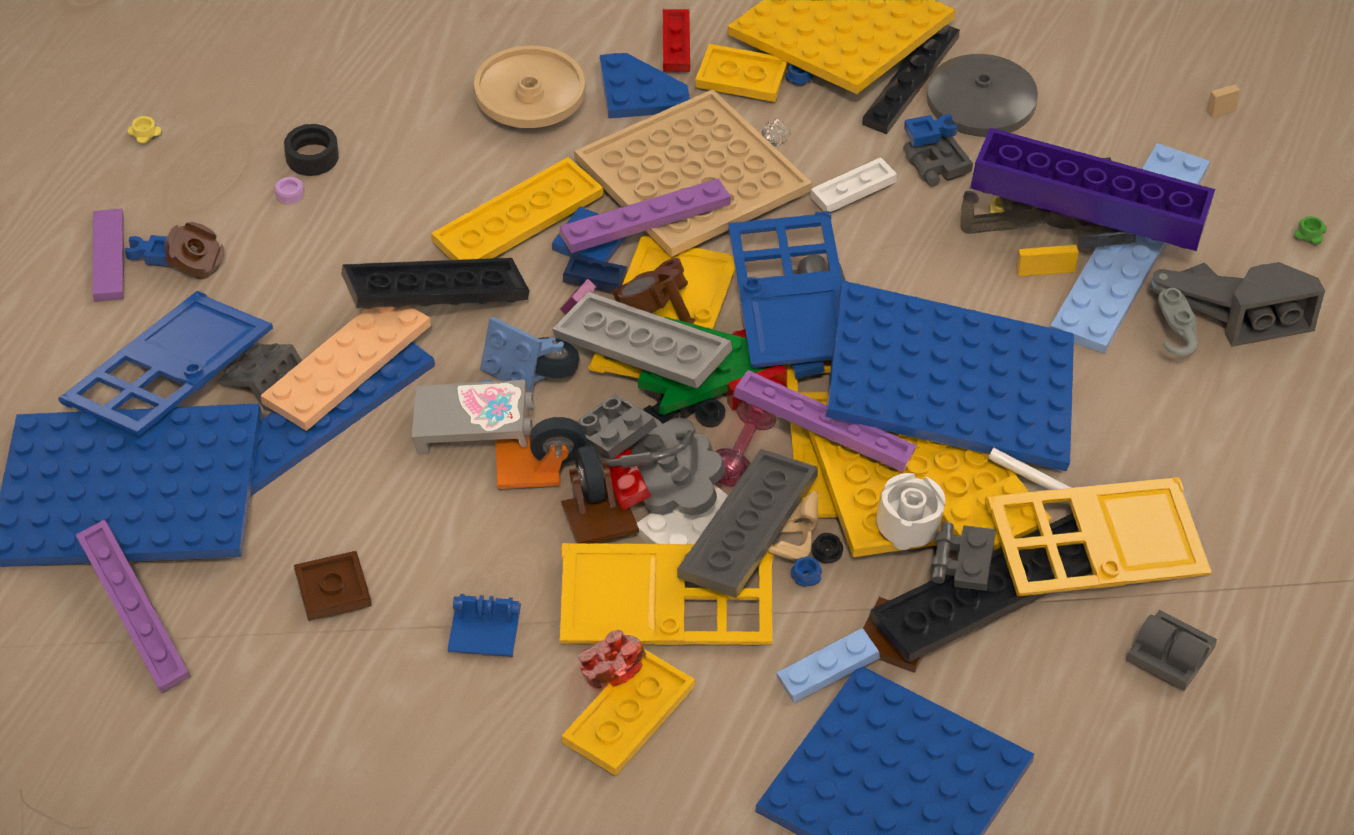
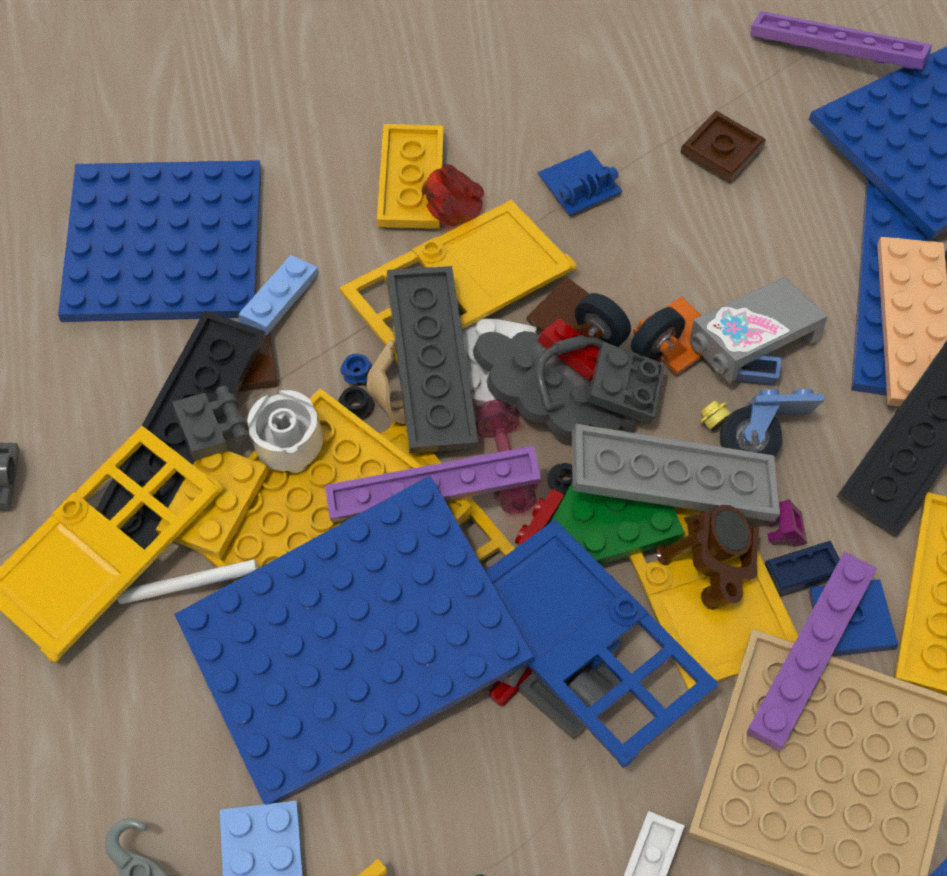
camera: 145 degrees right, 10 degrees up
(556, 384) = (714, 414): none -> light yellow plate

